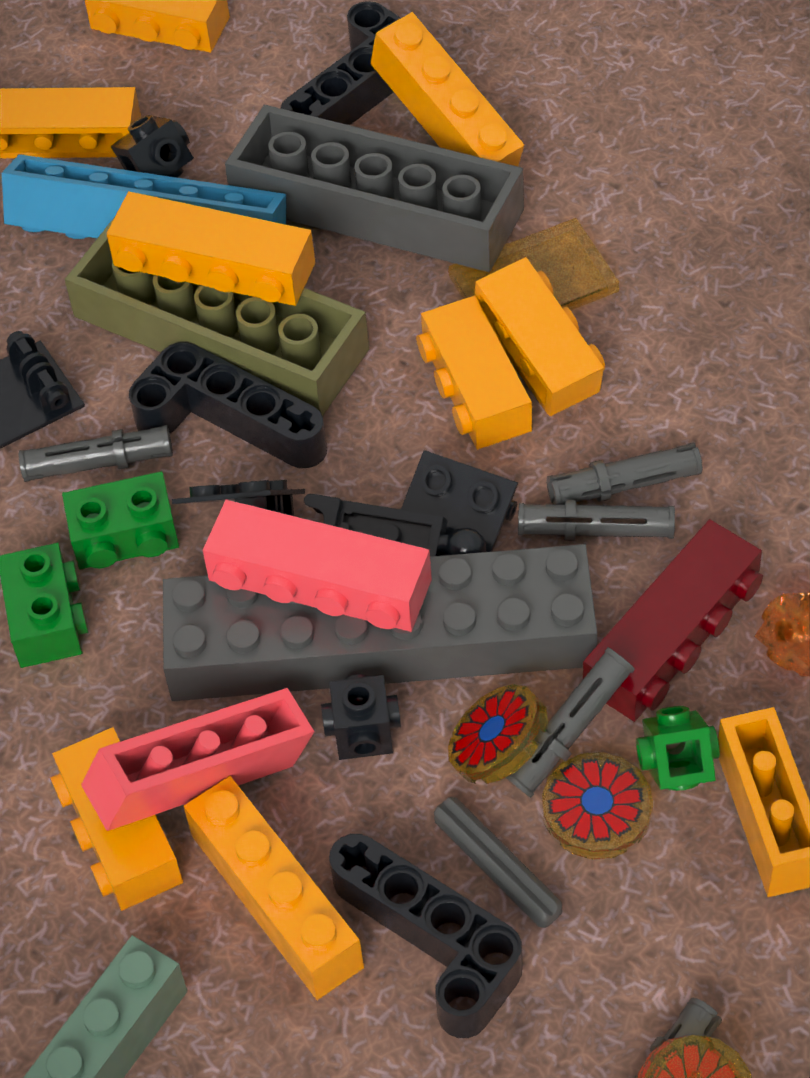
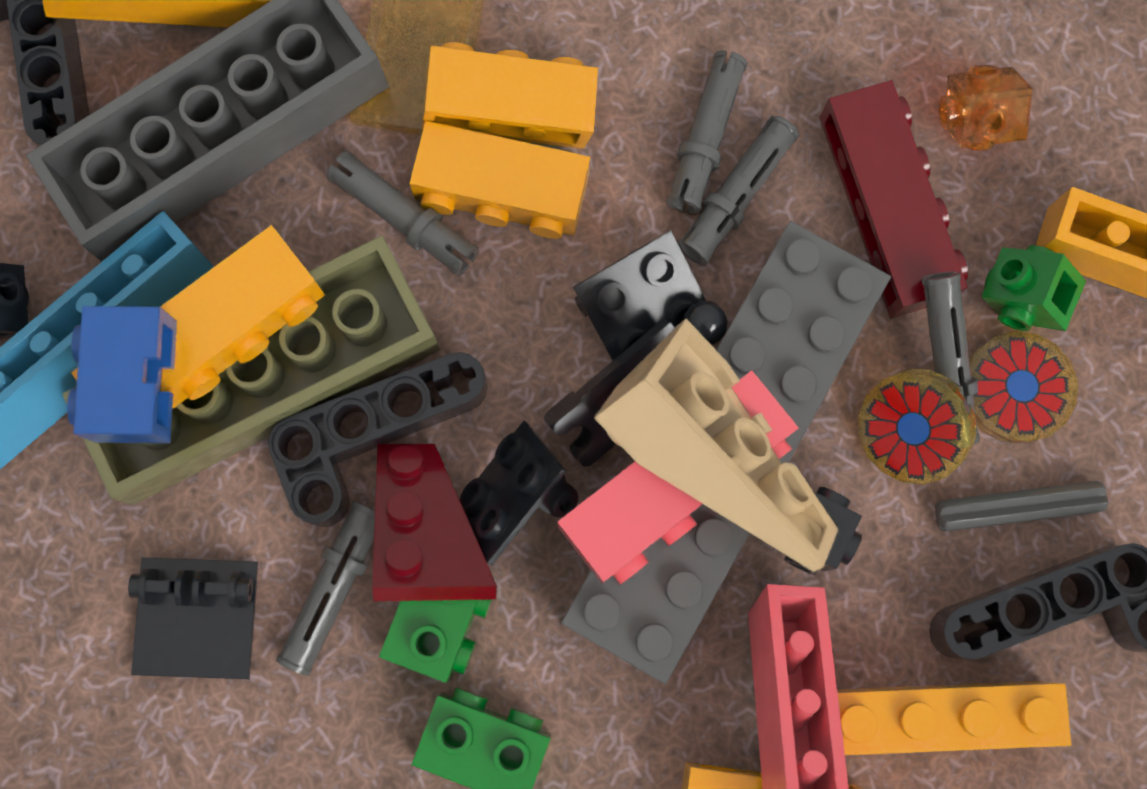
camera: 65 degrees left, 25 degrees up
(144, 206) = (120, 374): none -> blue brick
(169, 459) = (422, 532): none -> dark red wing
(350, 531) = (695, 433): none -> tan wedge
(401, 350) = (421, 226): none -> dark grey pin

